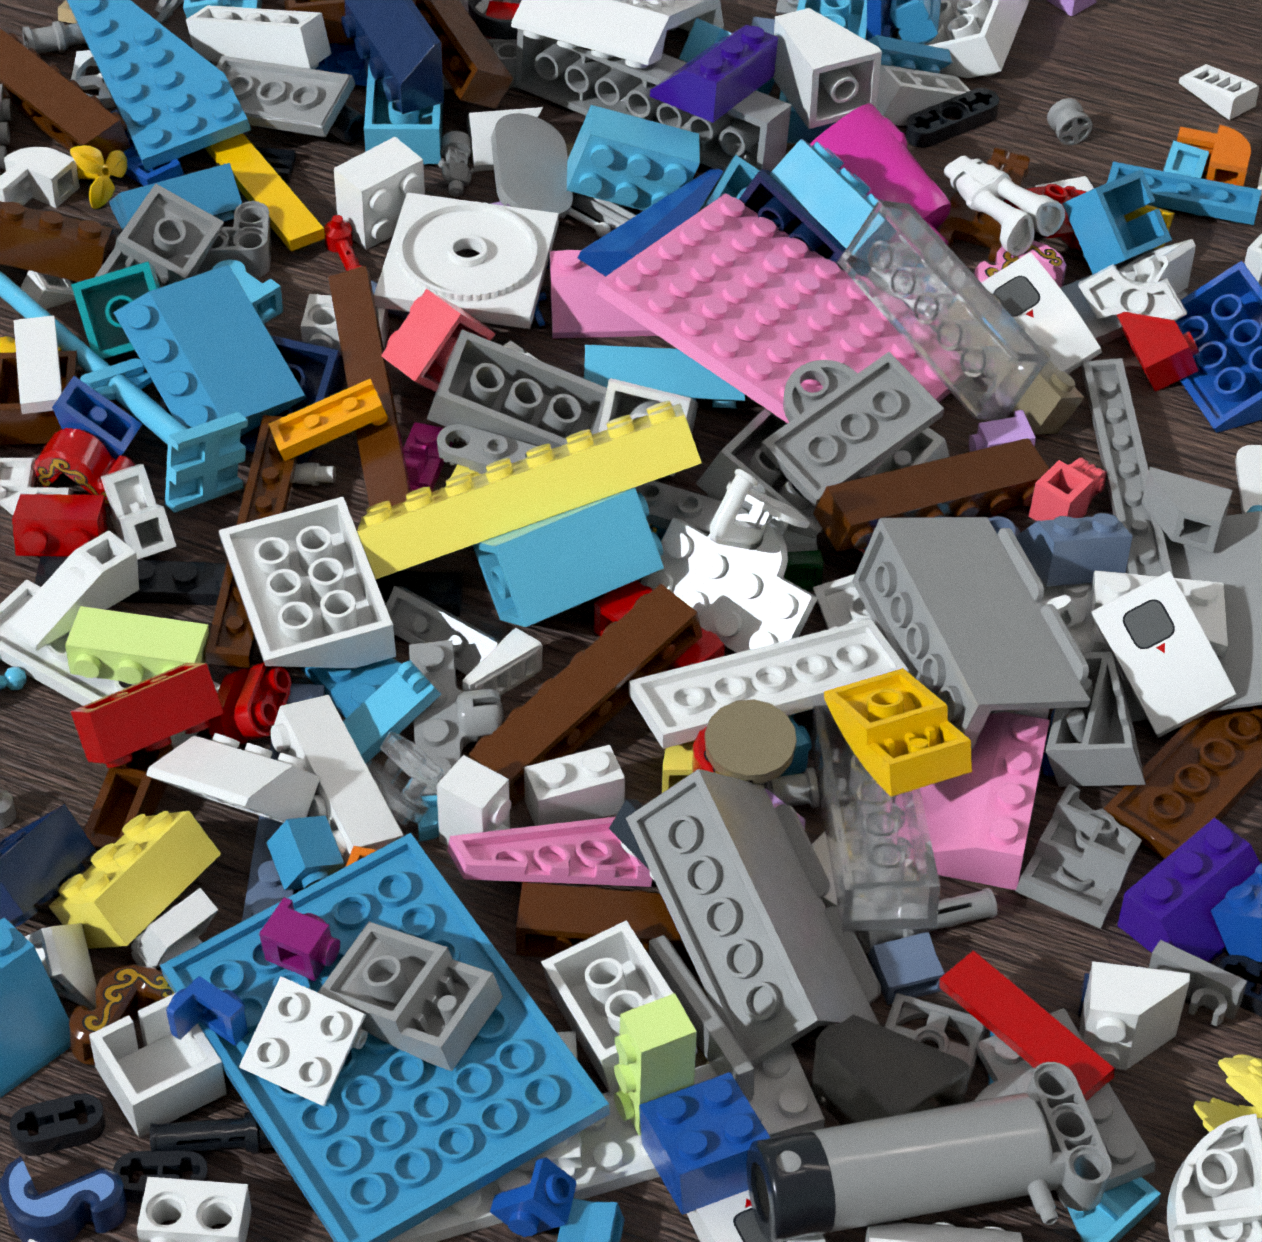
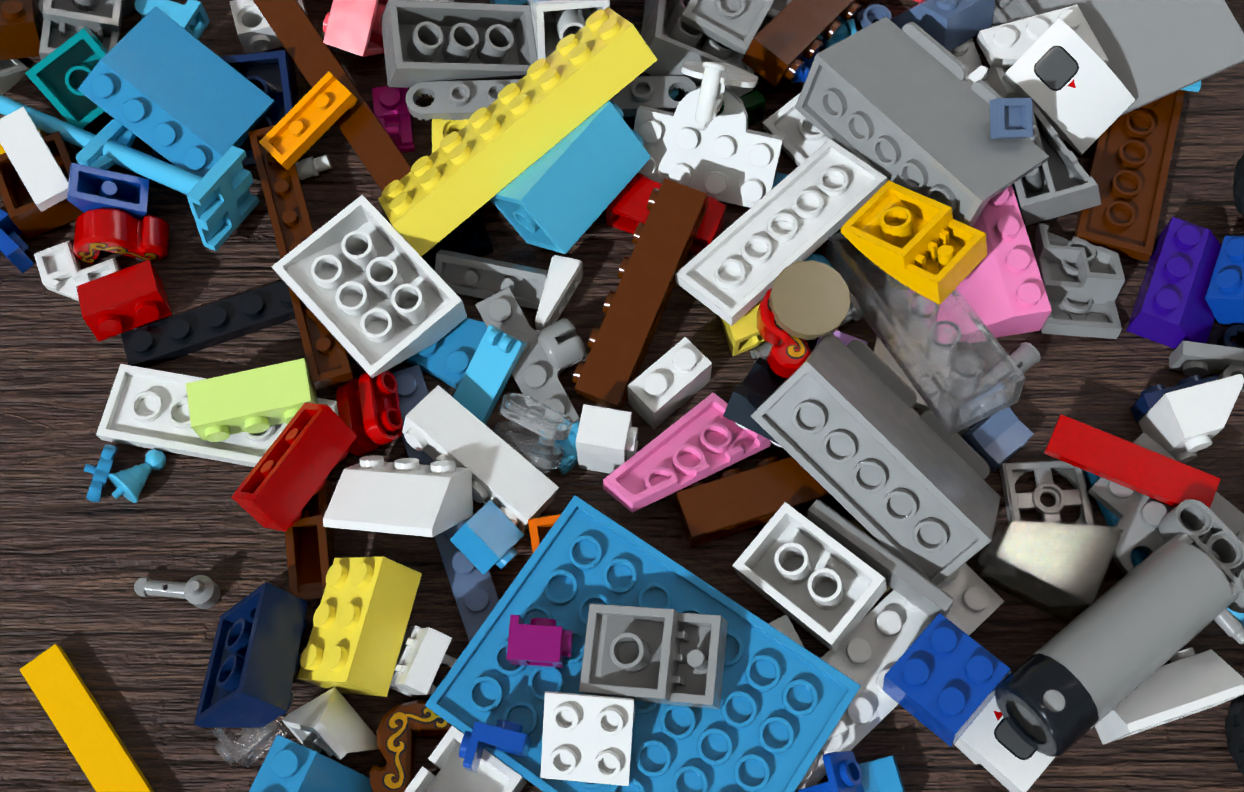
camera: 20 degrees left, 20 degrees up
(90, 577) = (176, 358): white slope -> none
(135, 512) = (185, 266): white brick -> none
(654, 1055) = (885, 636): yellowish green brick -> none
(1058, 644) = (1011, 118): none -> sand blue plate

